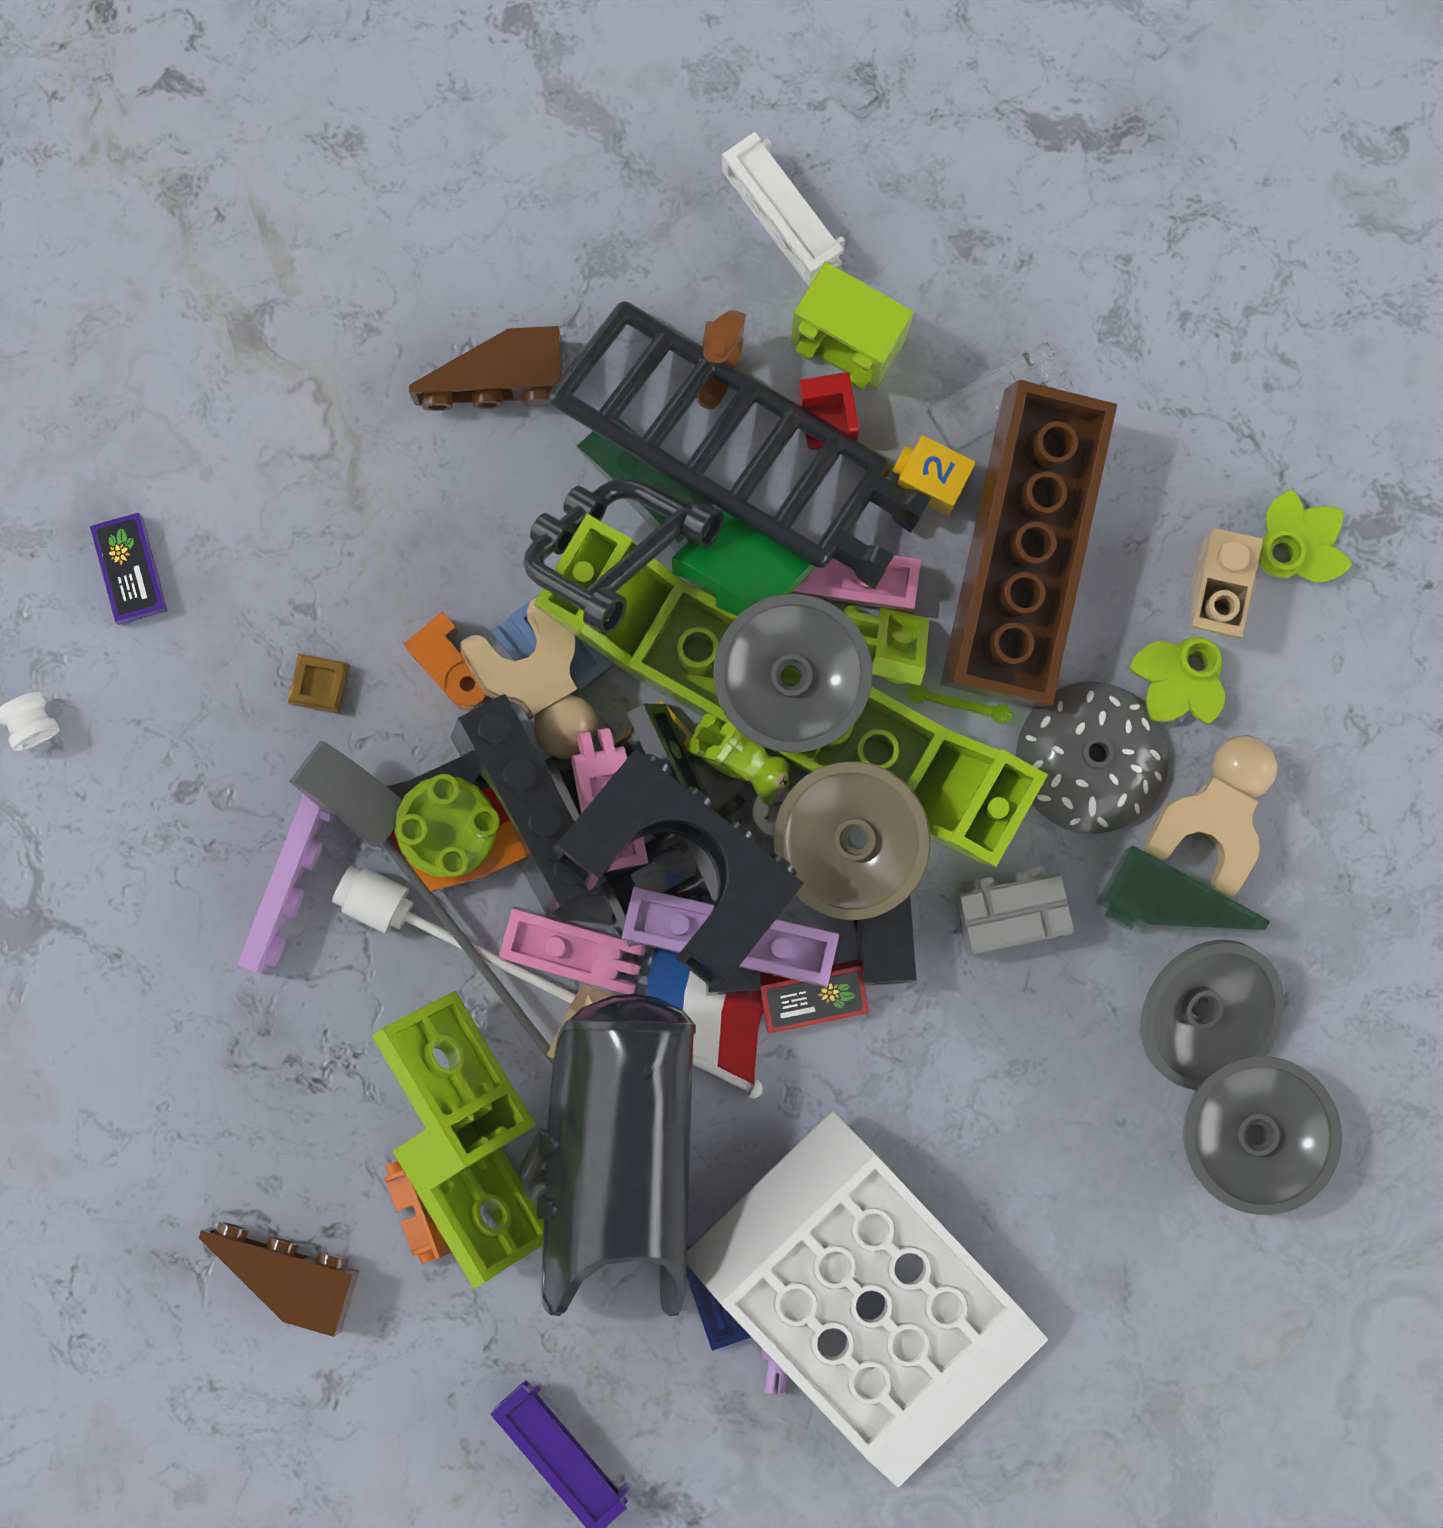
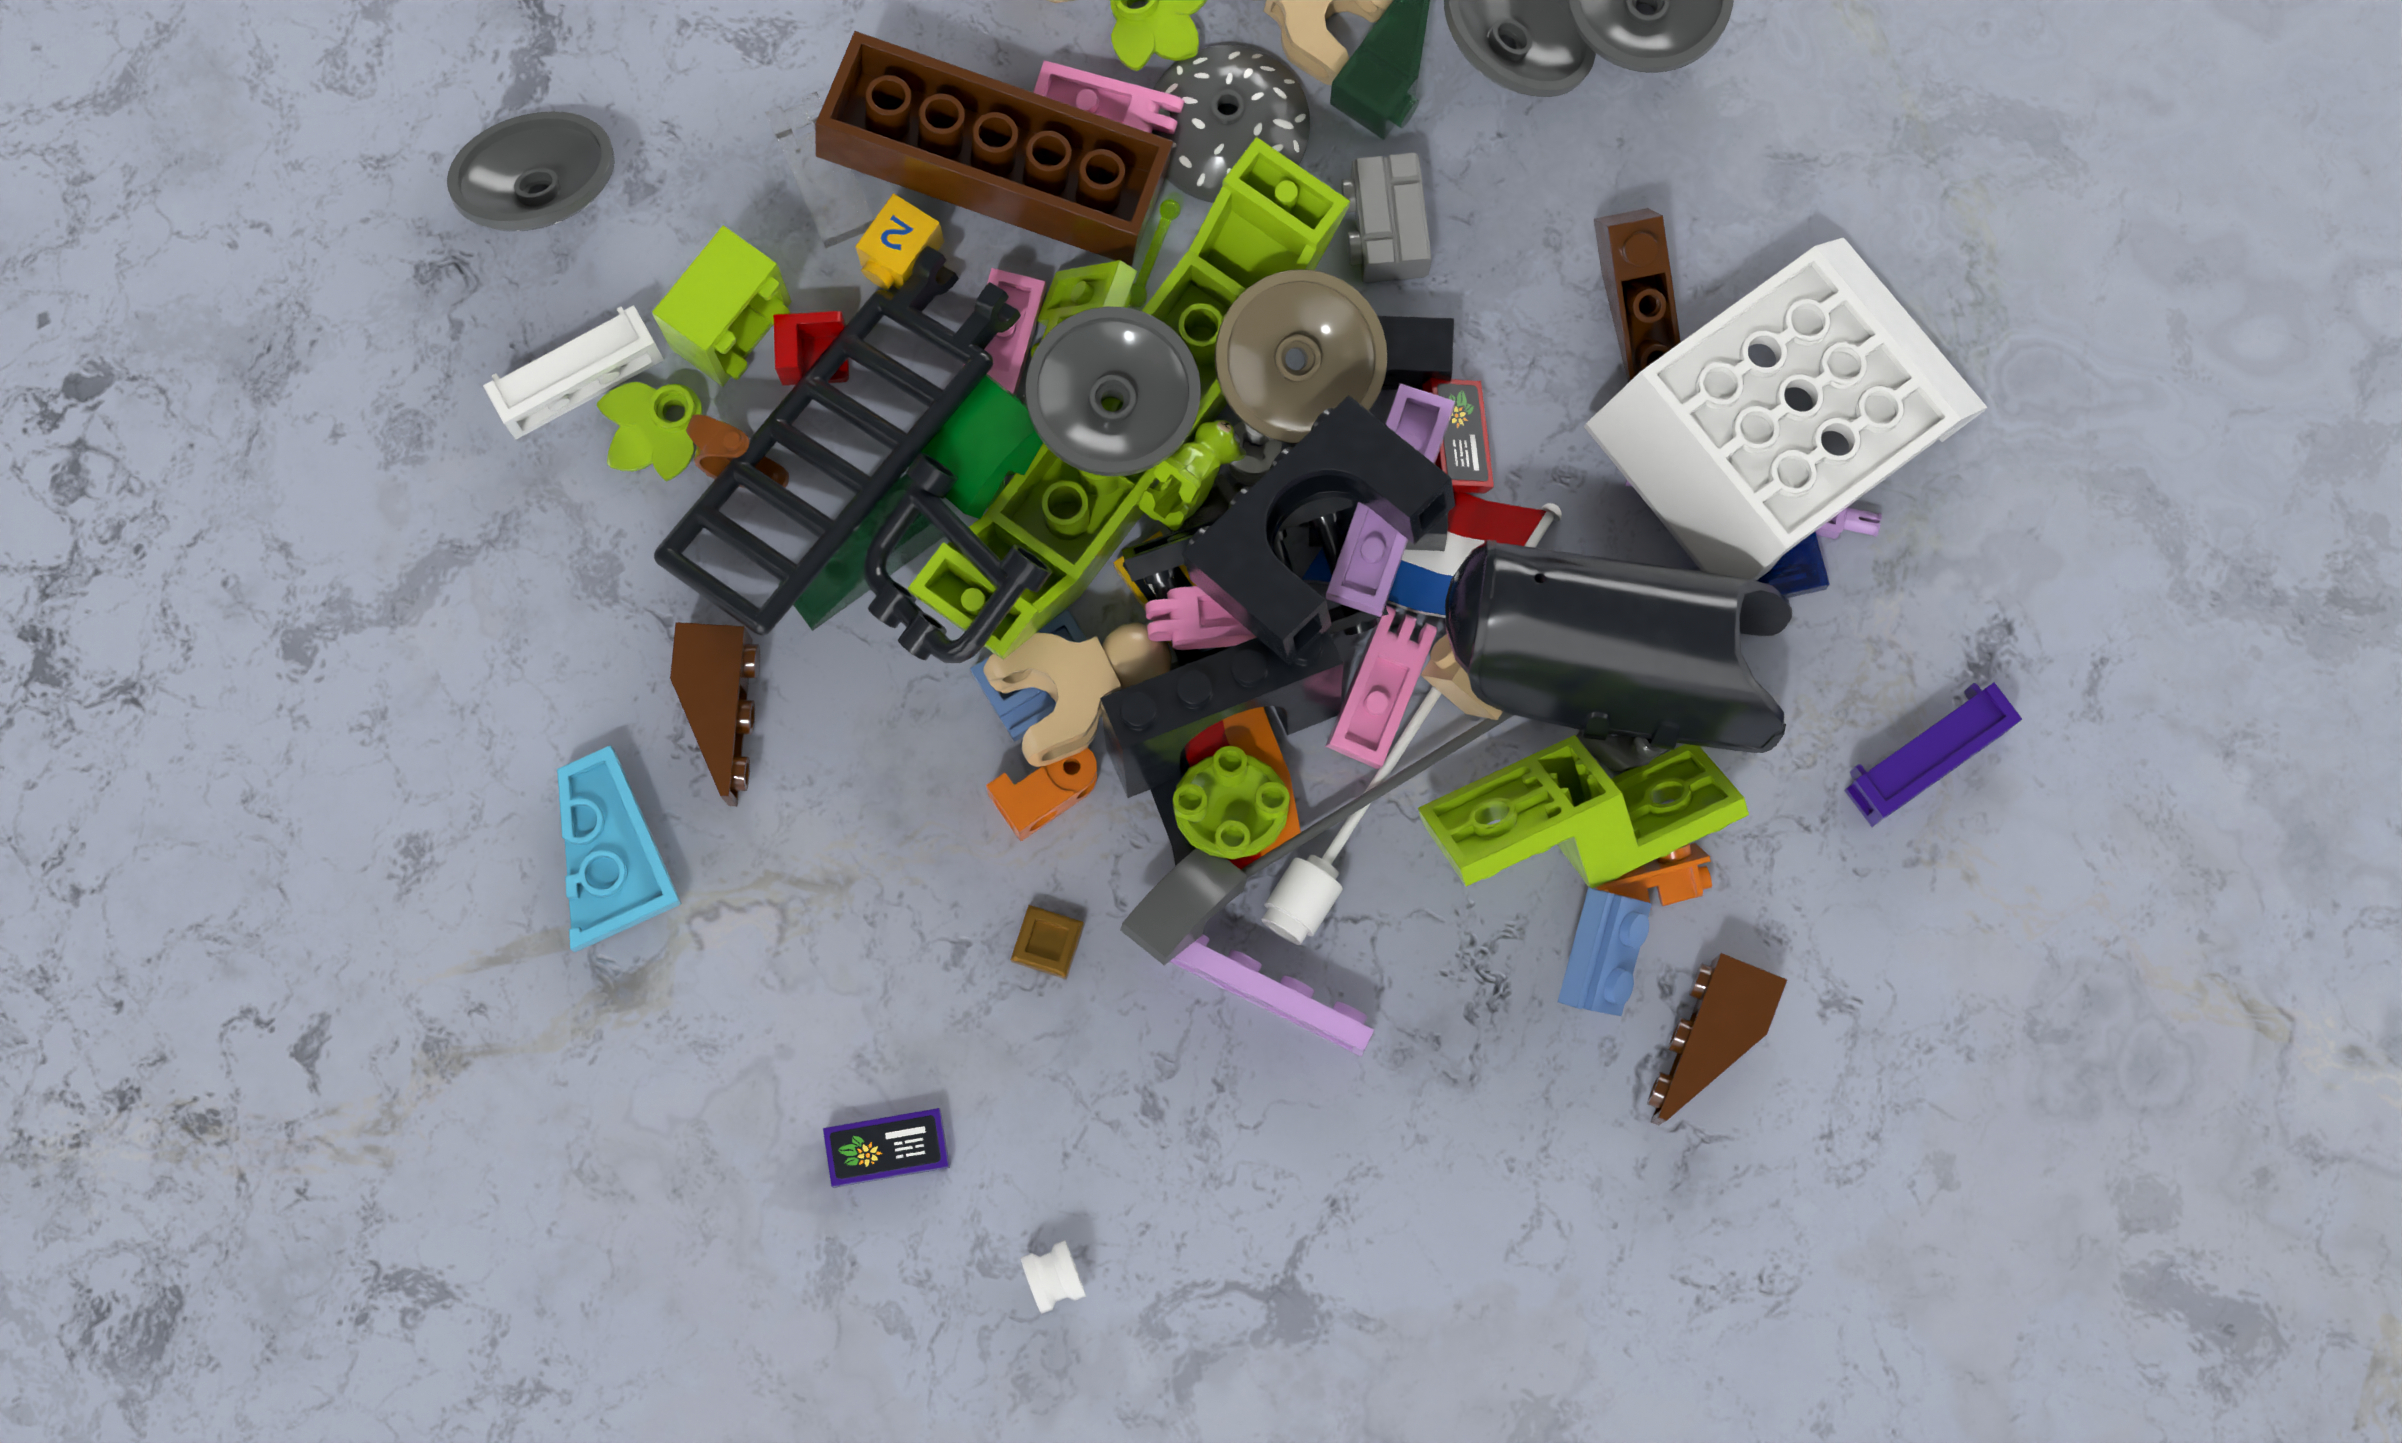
camera: 80 degrees left, 5 degrees down
(344, 1171) = (1605, 952): none -> medium blue plate
(360, 302) = (610, 853): none -> medium azure wing
(739, 279) = (644, 431): none -> lime plate
(959, 143) = (531, 171): none -> dark grey dish
(970, 1151) = (1638, 286): none -> reddish brown slope
(1090, 640) = (1109, 97): none -> bright pink hinge

